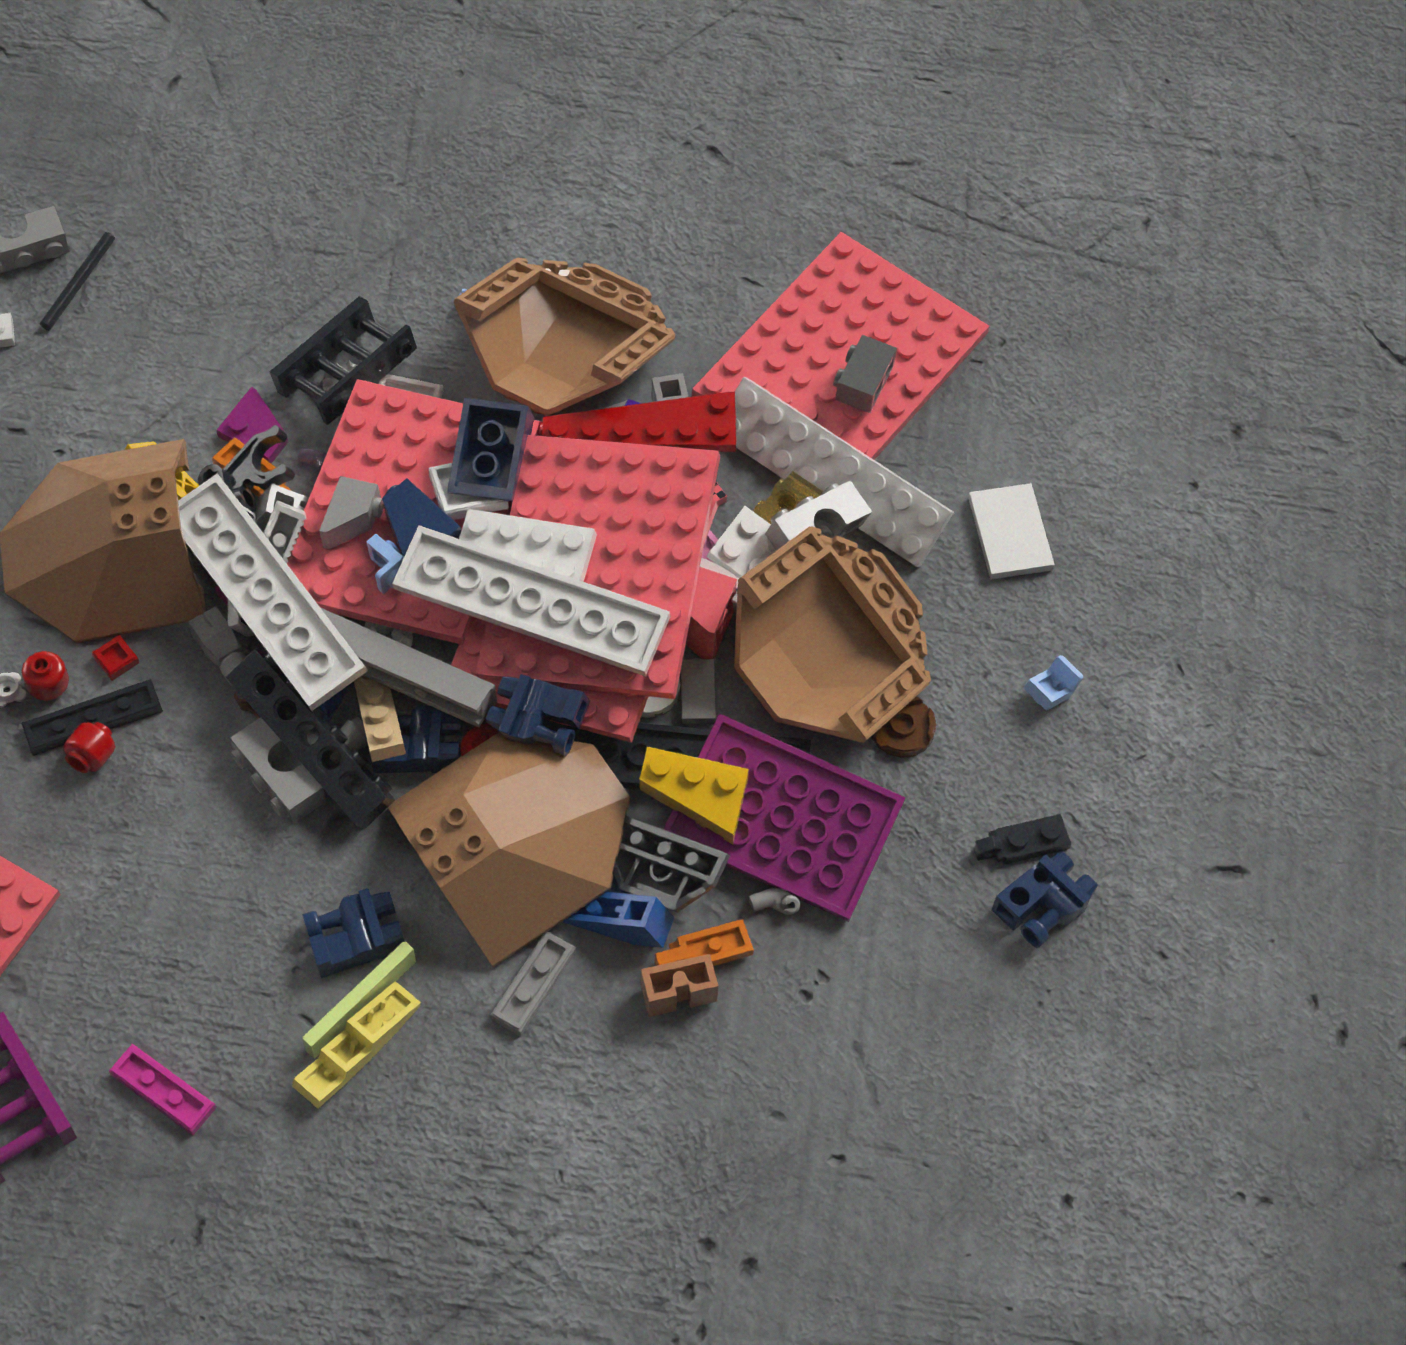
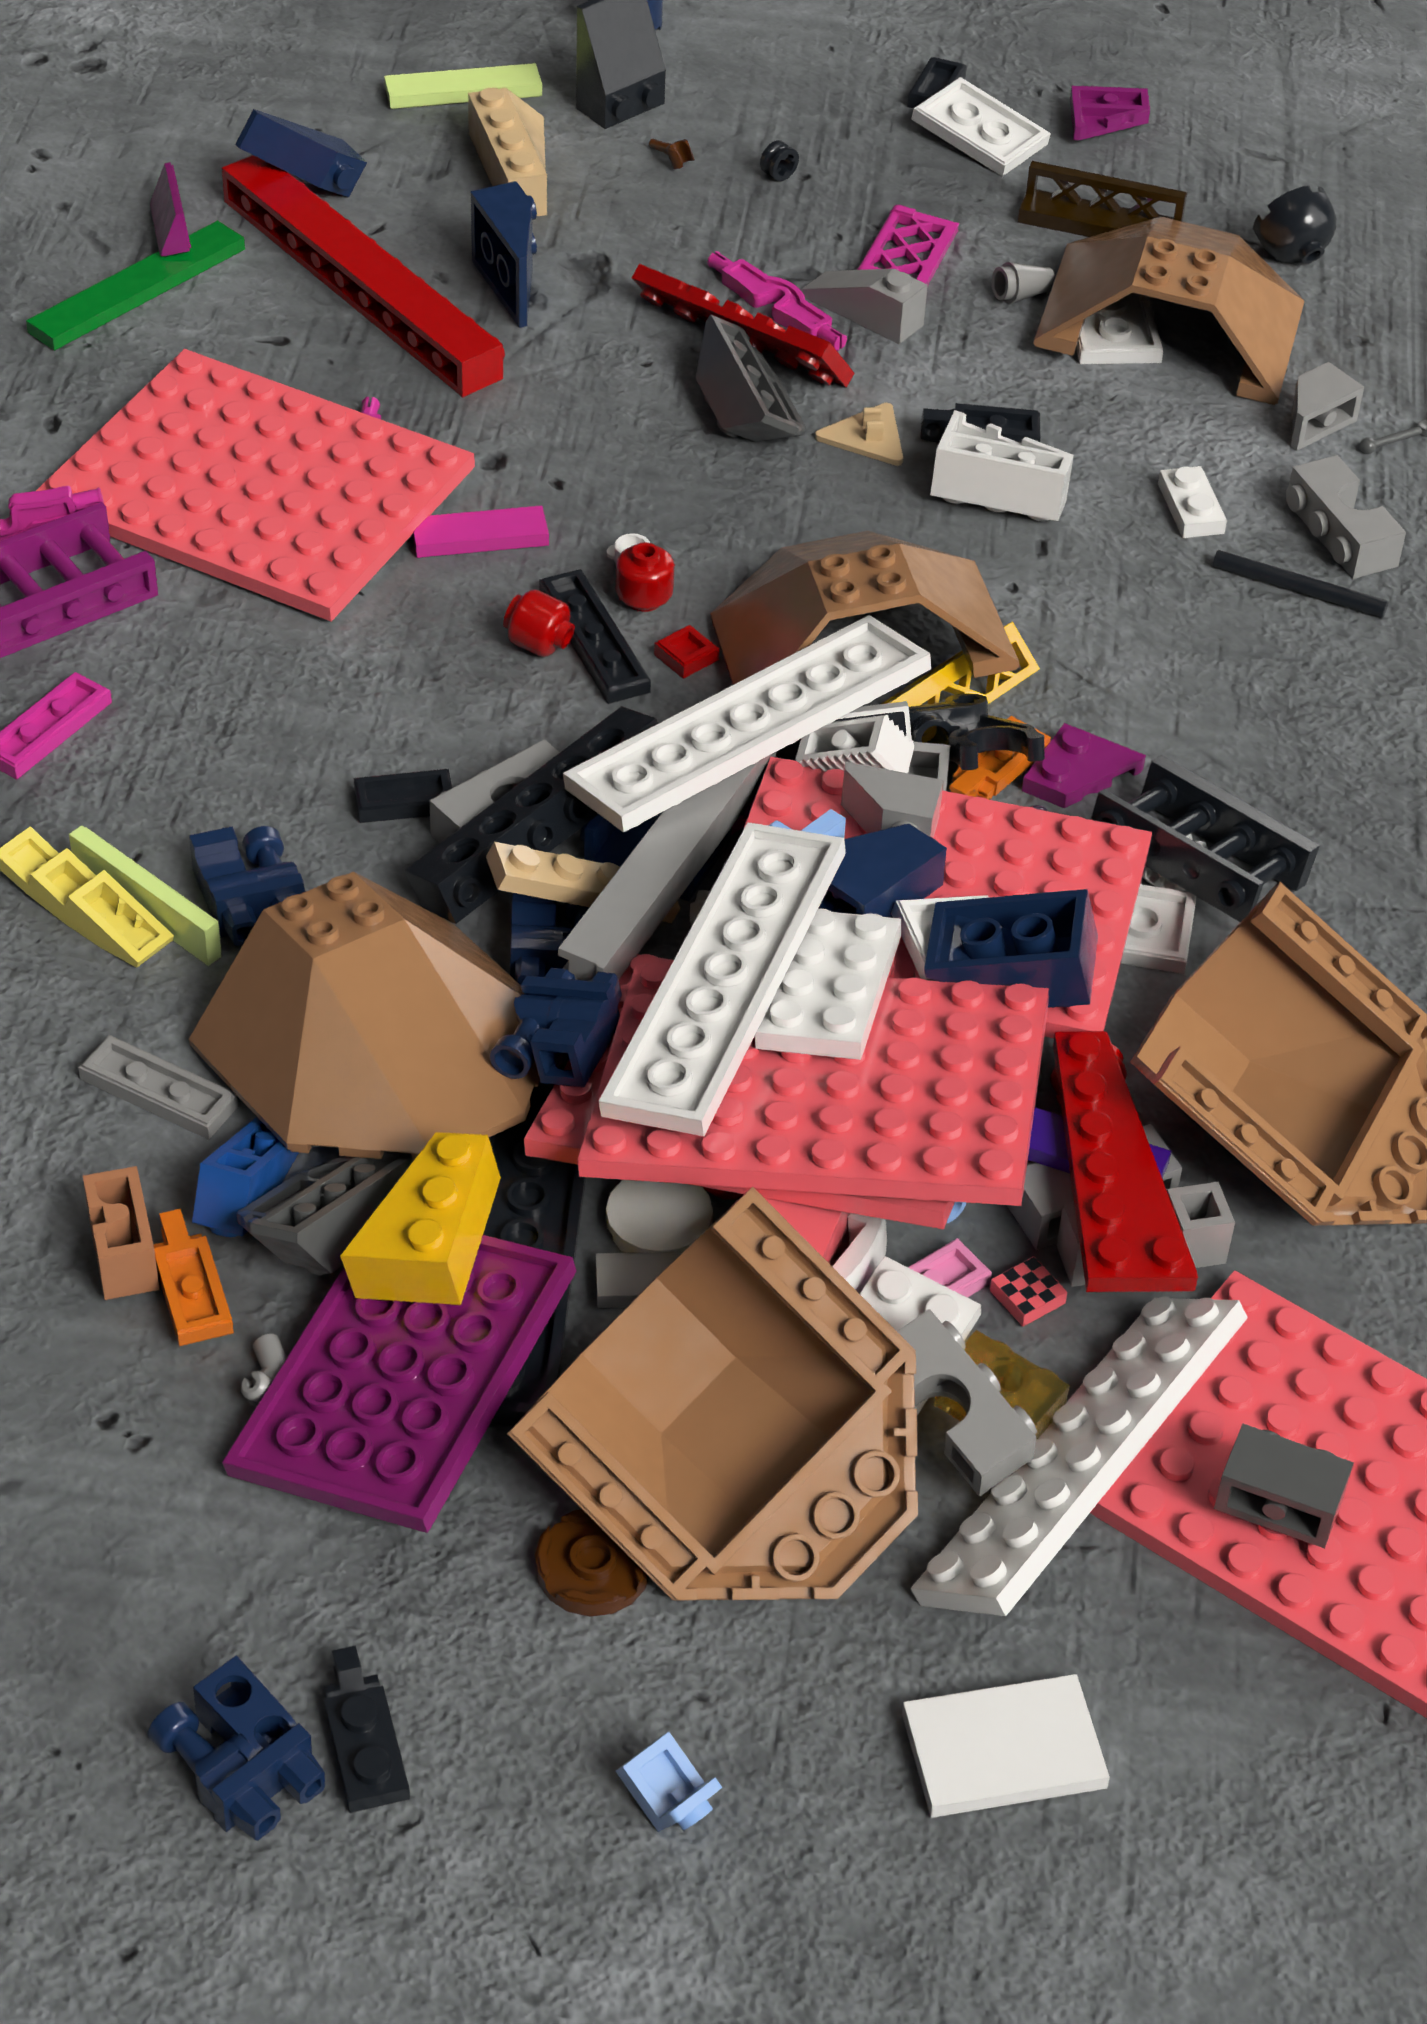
camera: 90 degrees right, 15 degrees down
(256, 840) = (399, 794): none -> black tile

